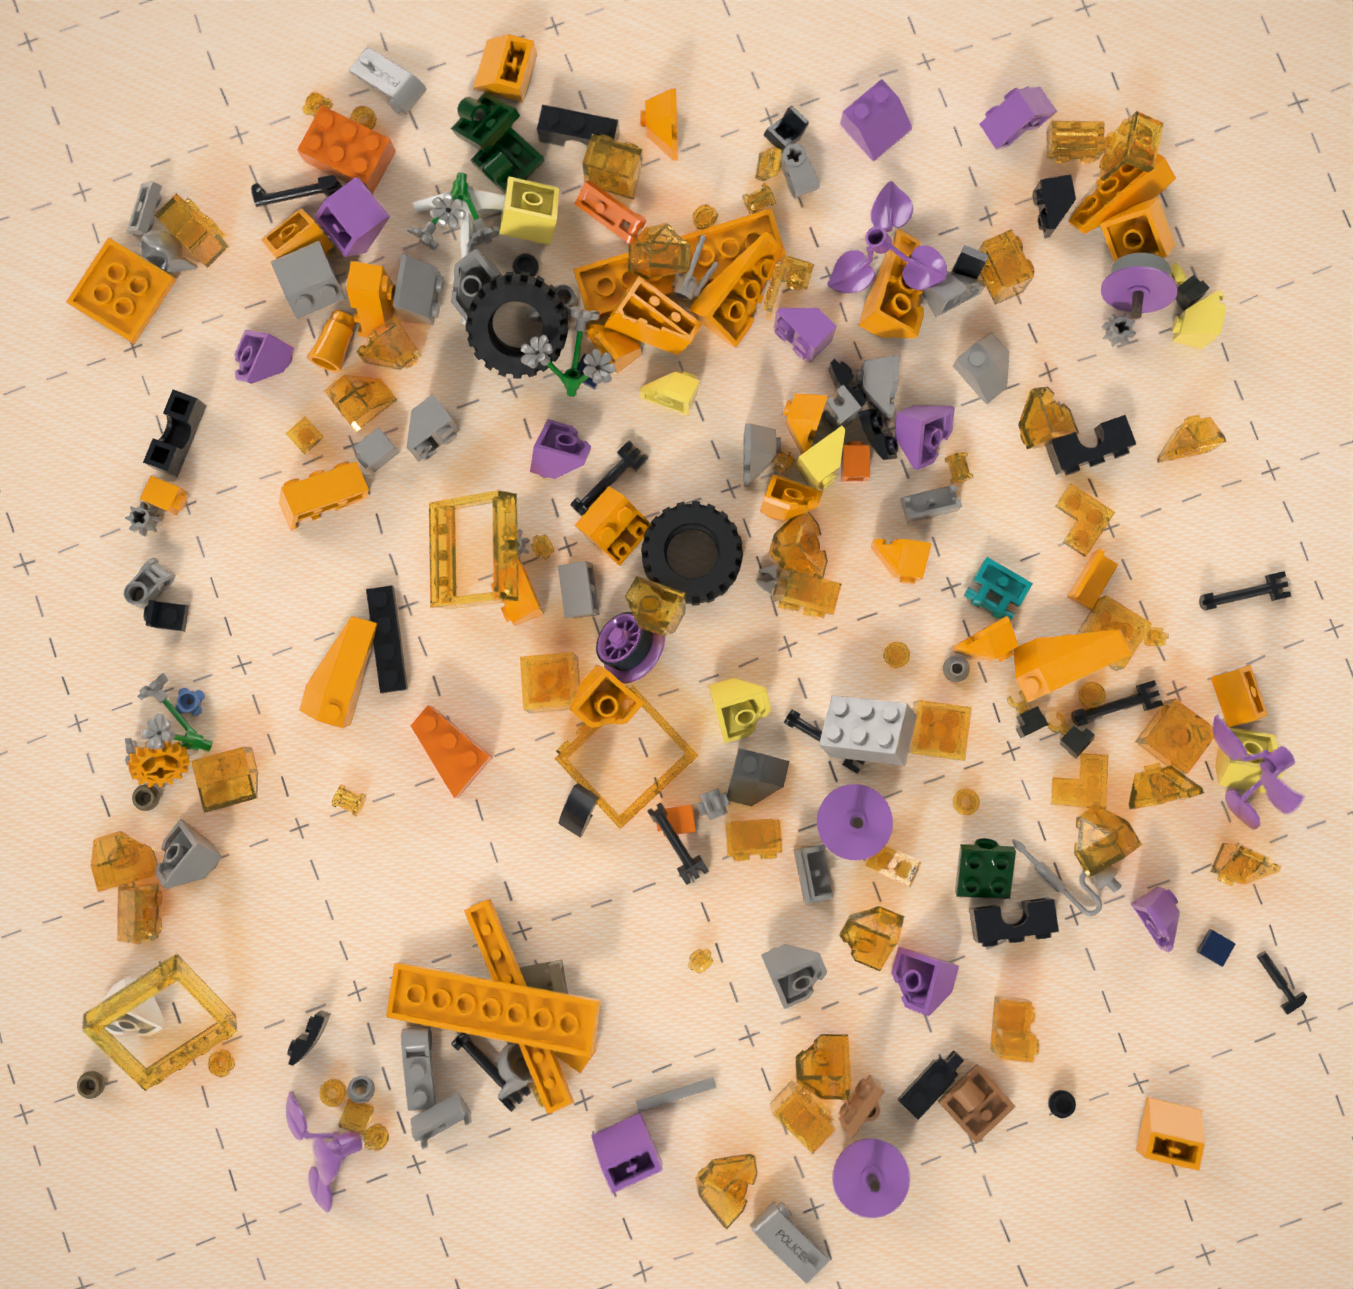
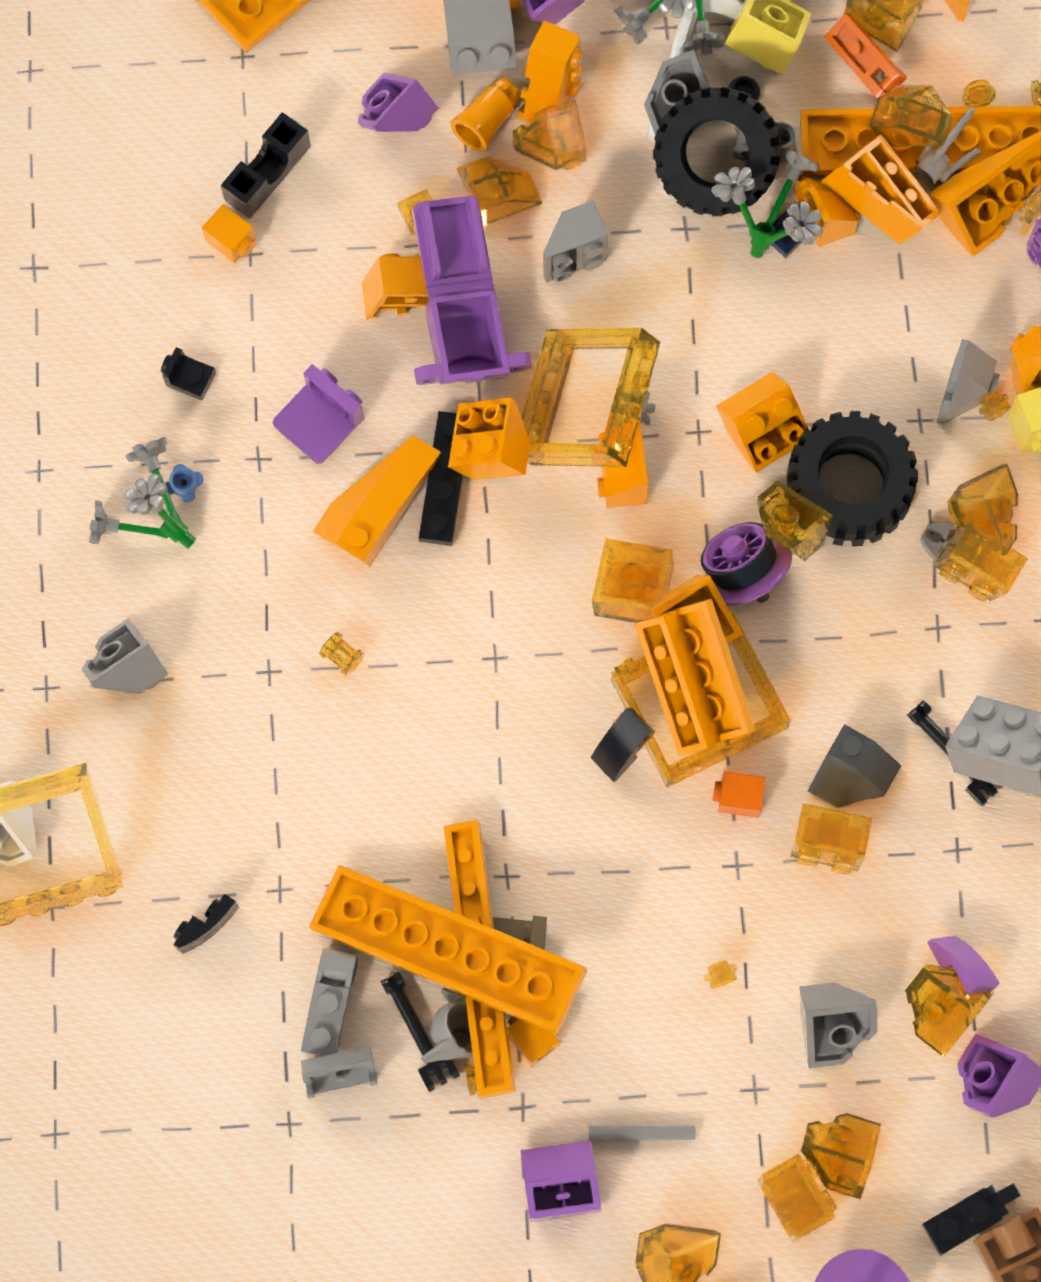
camera: 15 degrees right, 10 degrees down
(120, 861) = (43, 648): clear yellow slope -> none
(136, 520) = (193, 263): light grey gear -> none
(138, 800) = (88, 573): dark tan plate -> none
(138, 913) = (46, 711): clear yellow slope -> none
(149, 582) = (182, 326): light grey piece -> none
(159, 765) = (125, 539): light orange gear -> none
(214, 1066) = (87, 916): clear yellow plate -> none
(226, 778) = (202, 581): clear yellow slope -> none
(276, 620) = (319, 415): none -> medium lavender bracket
(327, 1156) = (198, 1060): medium lavender plant -> none
(338, 1086) = (218, 1011): clear yellow plate -> none
(353, 496) = (461, 296): none -> medium lavender piece
(356, 1117) = (234, 1038): clear yellow plate -> none
(357, 1082) = (252, 999): light grey plate -> none
(375, 450) = (505, 251): light grey brick -> none
(376, 1137) = (251, 1071): clear yellow plate -> none
(410, 604) = (489, 440): none -> light orange slope
(417, 291) = (606, 83): light grey slope -> none
(450, 750) = (486, 627): orange wedge -> none
(542, 546) = (669, 421): clear yellow plate -> none
(558, 450) = (720, 314): medium lavender slope -> none
(578, 590) = (698, 484): light grey hinge -> none
(583, 505) = (803, 351): black hinge -> none
(617, 749) = (694, 677): none -> light orange slope
(672, 391) = (881, 284): light yellow slope -> none
(689, 865) = (741, 854): black hinge -> none
(713, 804) = (791, 786): light grey gear -> none
(738, 707) = (856, 680): light yellow slope -> none
(788, 498) = (987, 447): light orange slope -> none
(813, 873) = (892, 909): light grey hinge -> none
(854, 822) = (963, 855): medium lavender piece -> none
(863, 1105) = (862, 1214): medium nougat plate -> none
(881, 903) = (967, 963): none -> medium lavender slope
(894, 865) = (997, 924): clear yellow slope -> none

